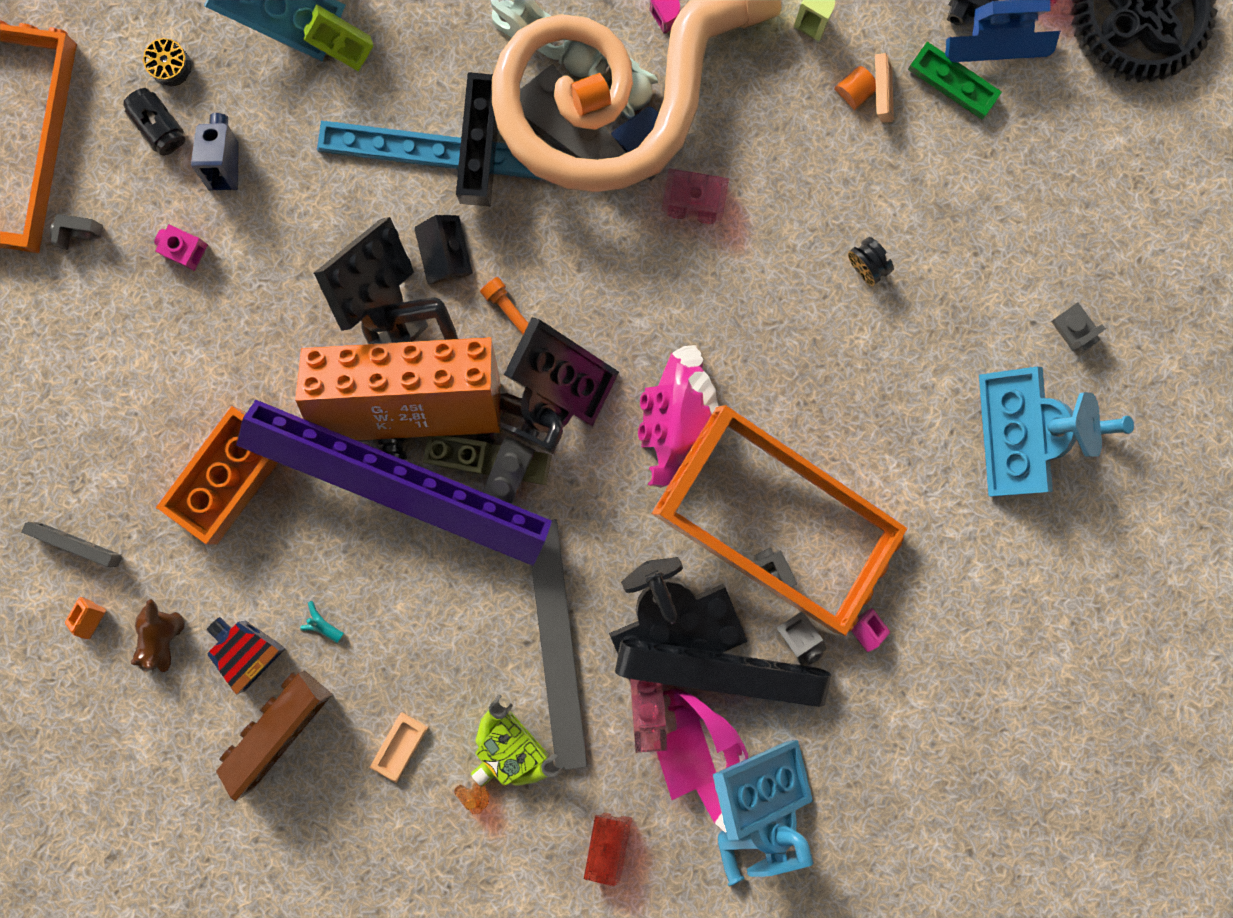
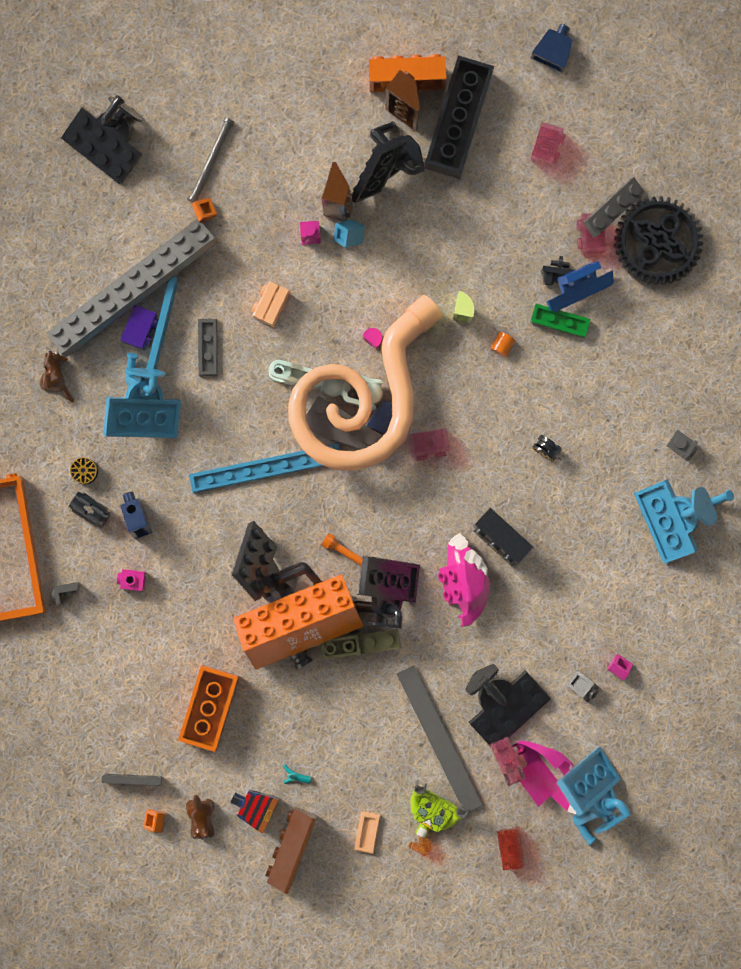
camera: 20 degrees left, 0 degrees up
(338, 38) = (184, 423): lime hinge -> none
(393, 482) = (314, 678): dark purple brick -> none
(443, 248) = (289, 527): black panel -> none
(477, 143) = (290, 457): black brick -> none
(508, 470) = (376, 654): dark grey plate -> none
(590, 94) = (351, 412): orange brick -> none
(722, 672) = (542, 722): black beam -> none
(757, 369) = (502, 537): none -> black brick
(780, 567) = (556, 651): dark grey bracket -> none
(873, 569) = (484, 606): orange door -> none
(884, 88) = (519, 340): light nougat tile -> none

